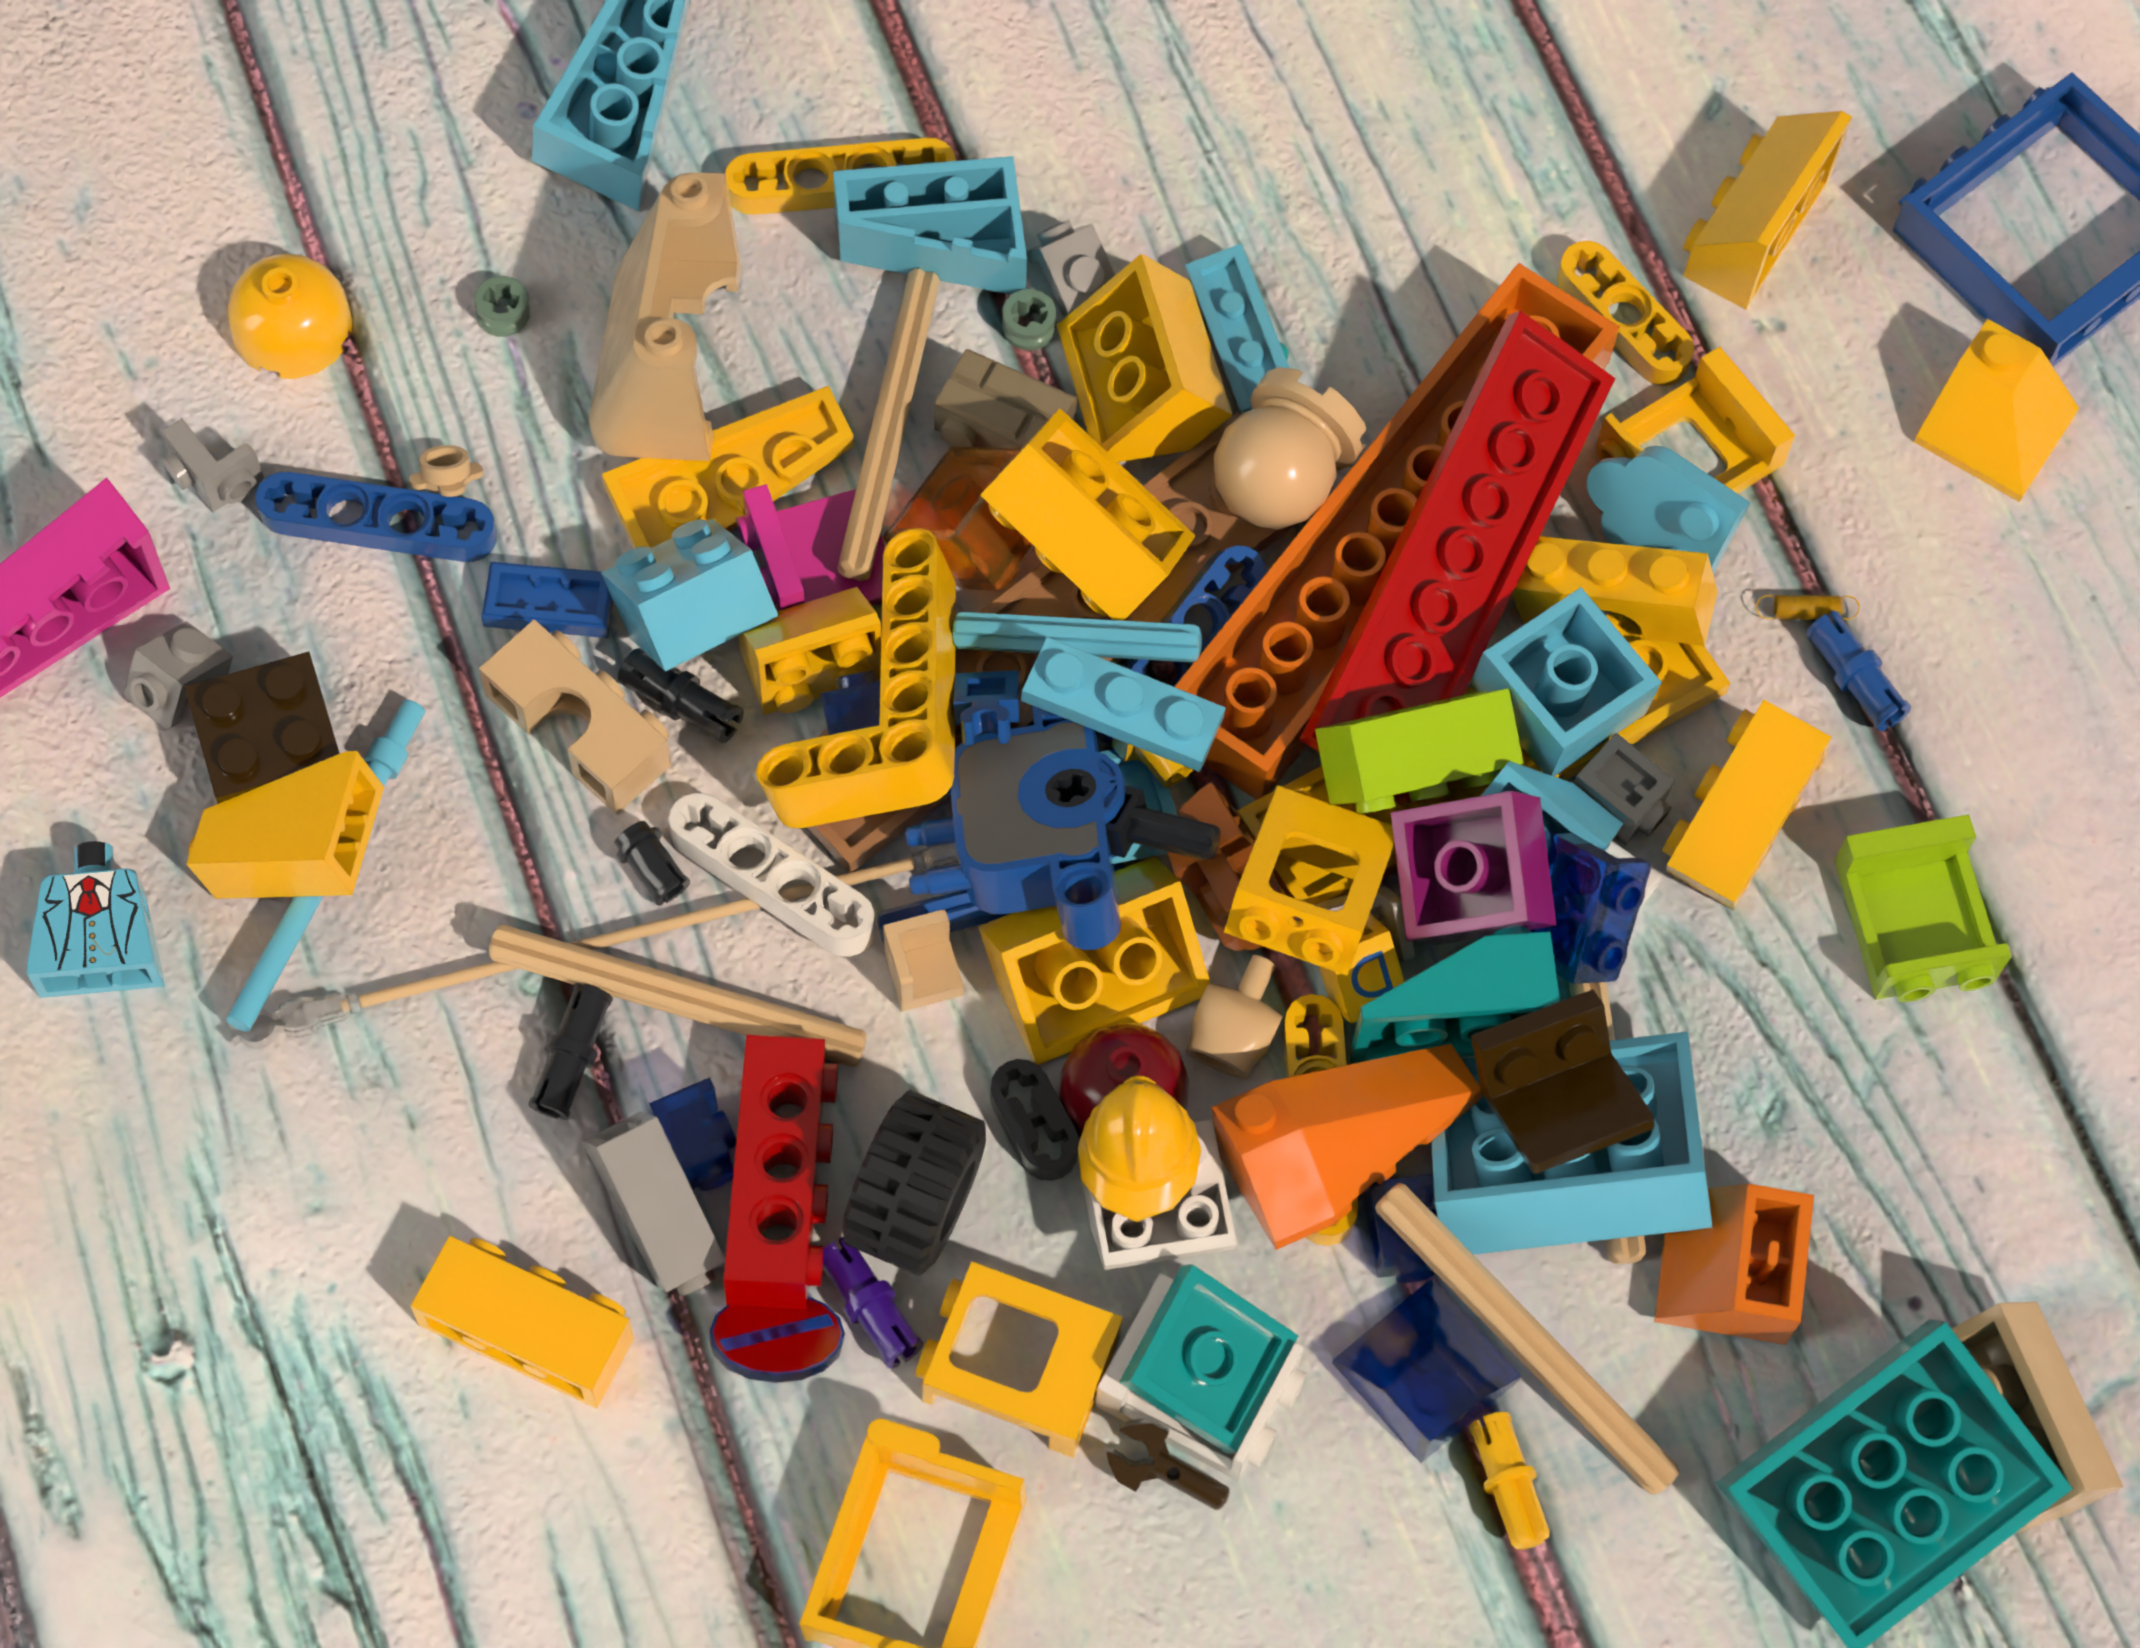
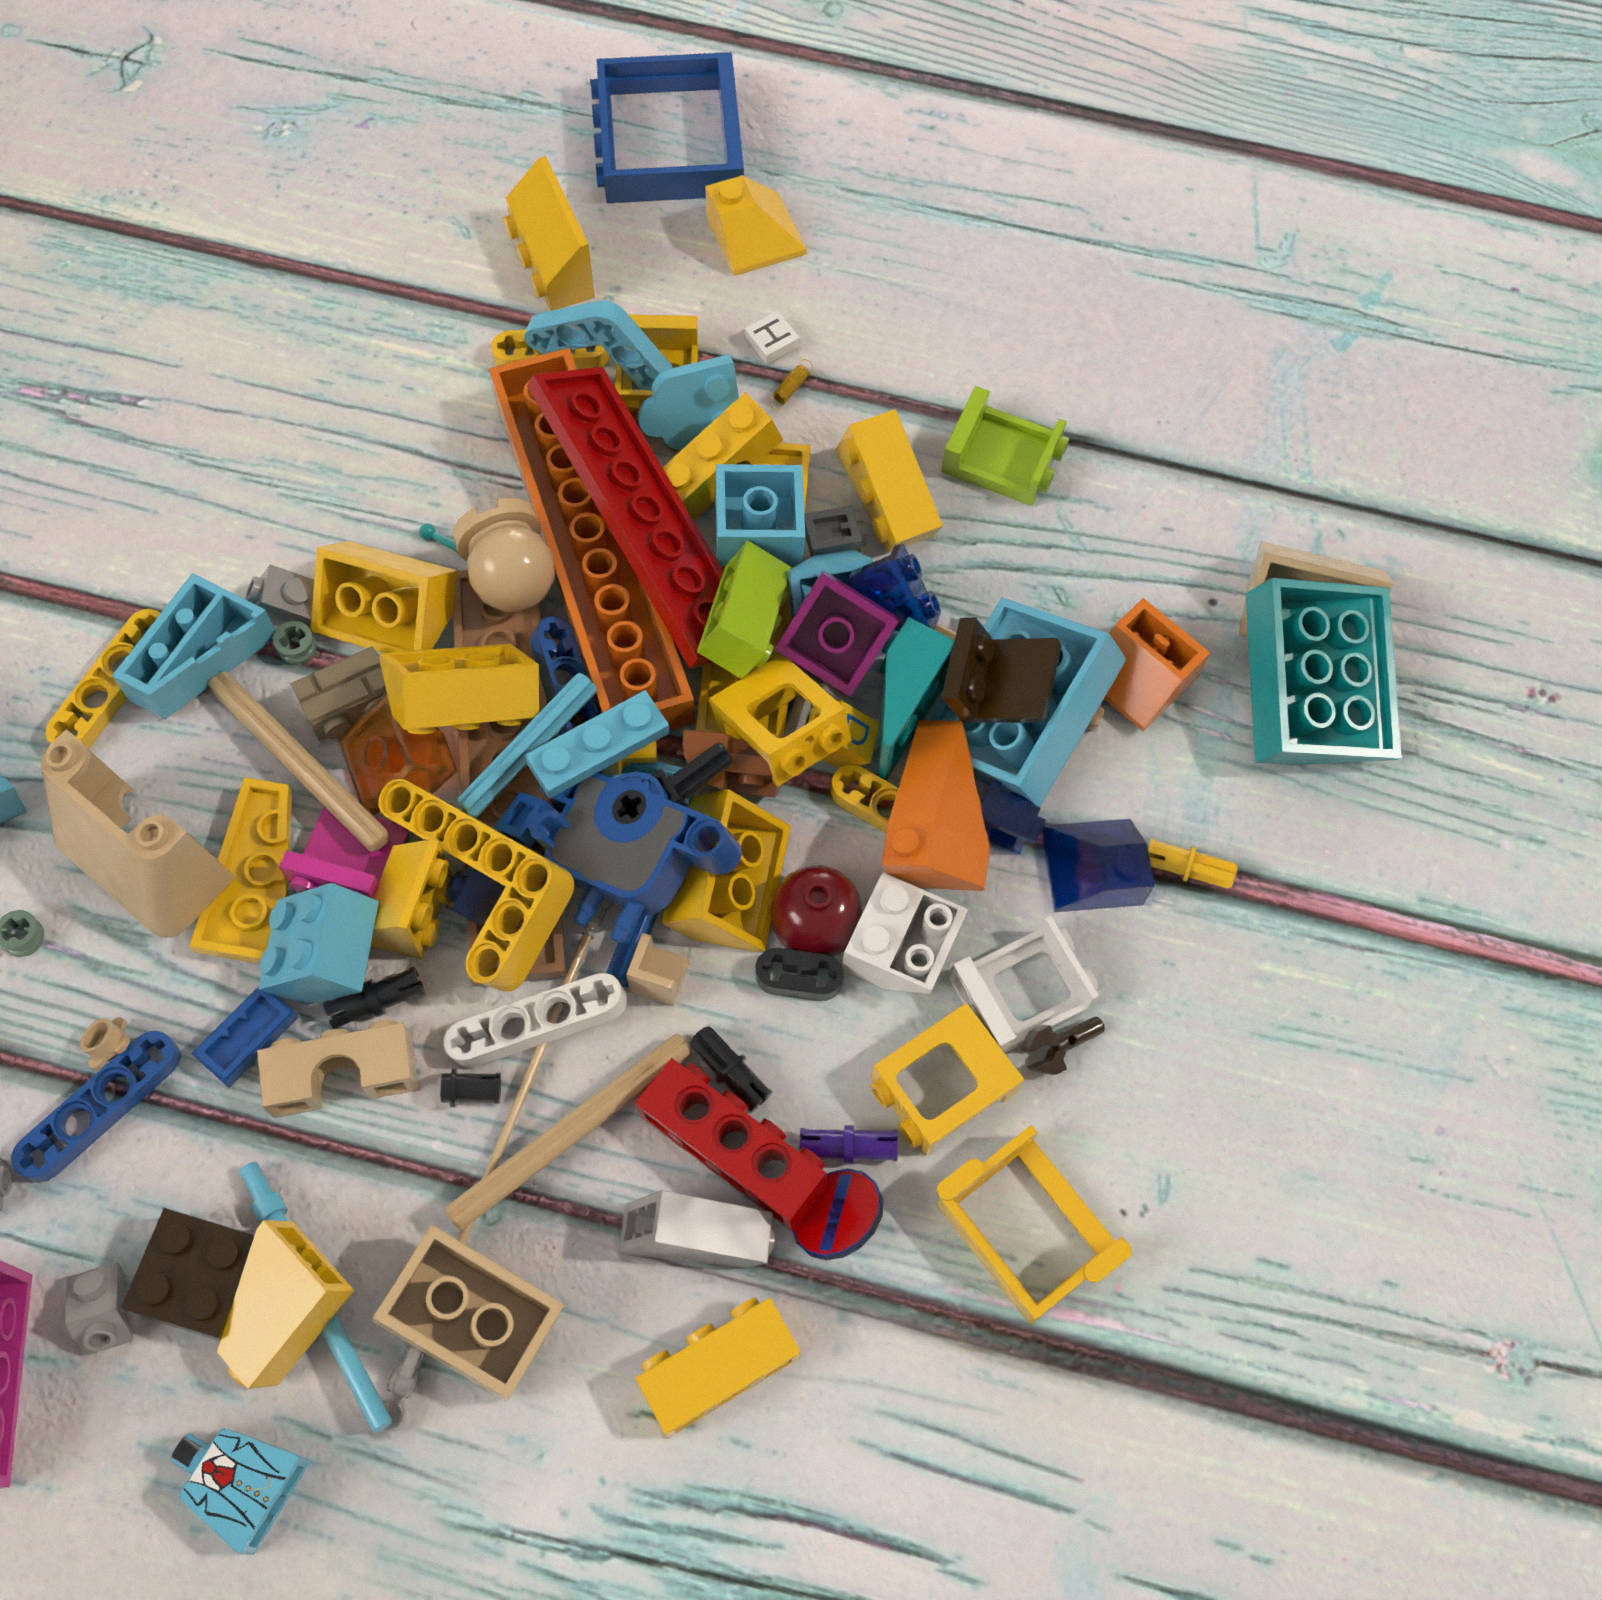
camera: 55 degrees left, 0 degrees up
(402, 1021) = (468, 1313): none -> tan brick
(570, 1051) = (558, 1220): black pin -> none
(697, 1135) = (673, 1173): clear blue brick -> none
(866, 1109) = (730, 1068): none -> black axle
(914, 1182) = (805, 1064): black tyre -> none
(1139, 1150) = (878, 923): yellow piece -> none
(1208, 1358) = (1024, 971): teal plate -> none
(1233, 1025) = (820, 827): tan piece -> none
(1237, 320) = (399, 534): medium azure plate -> none
(1527, 1339) = (1118, 797): tan axle -> none
(1675, 344) = (602, 325): none -> medium azure beam
(1856, 541) = (771, 337): none -> white tile
(1858, 671) = (847, 384): blue pin -> none

